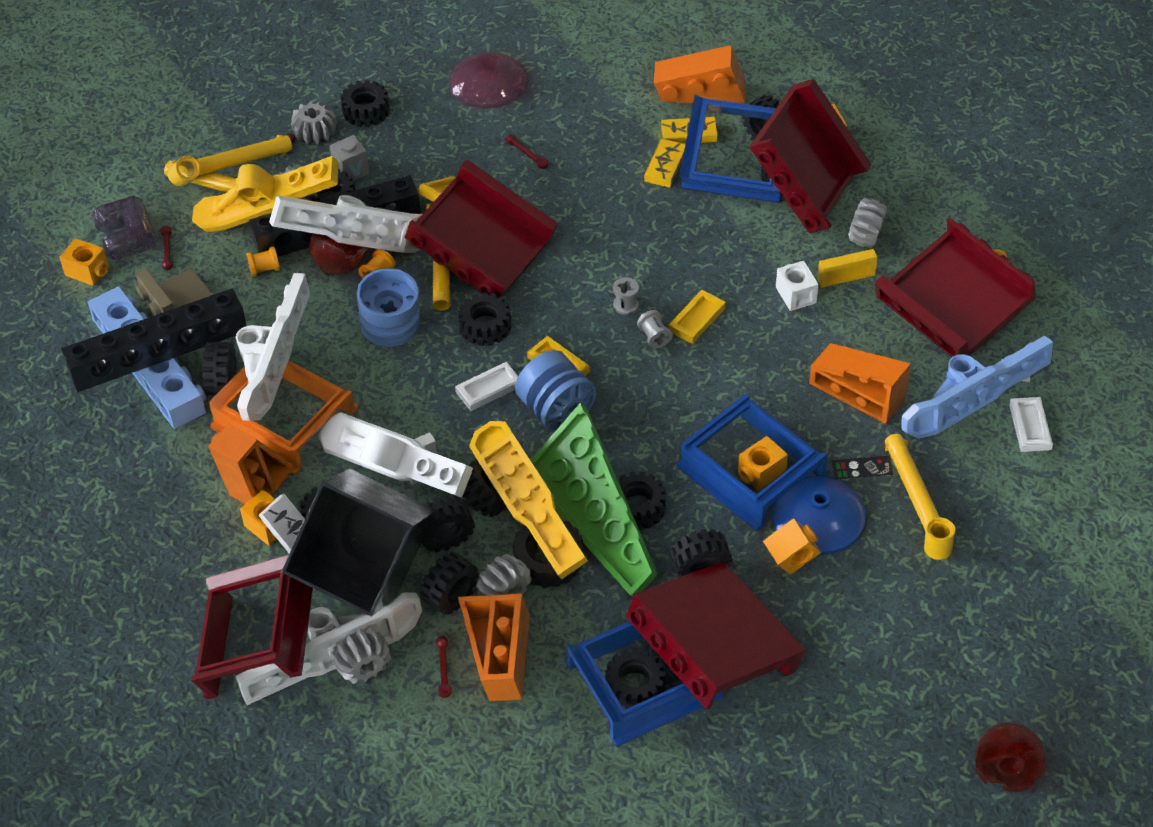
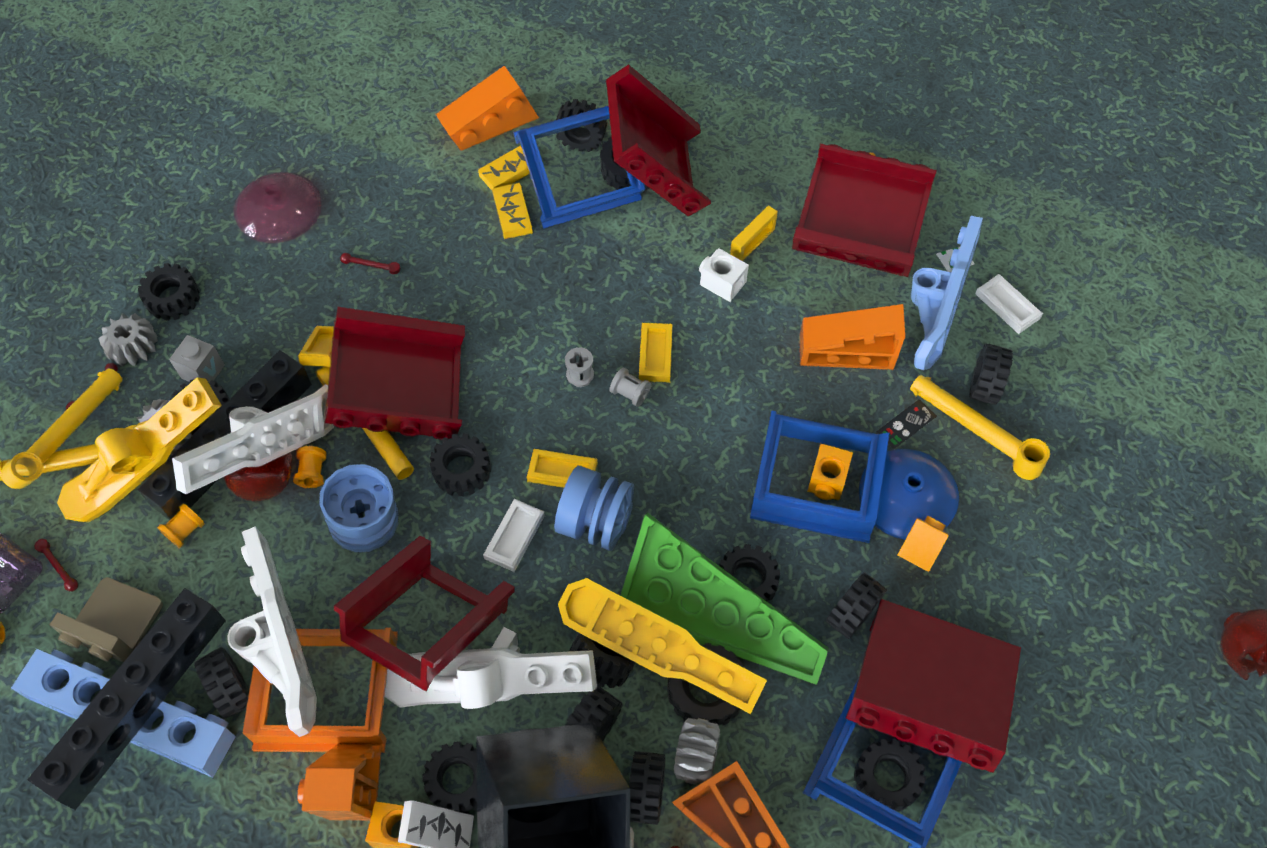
camera: 35 degrees left, 10 degrees up
(376, 364) = (387, 586): none -> dark red piece
(867, 222) = (742, 182): light grey gear -> none
(956, 459) = (991, 373): none -> black tyre

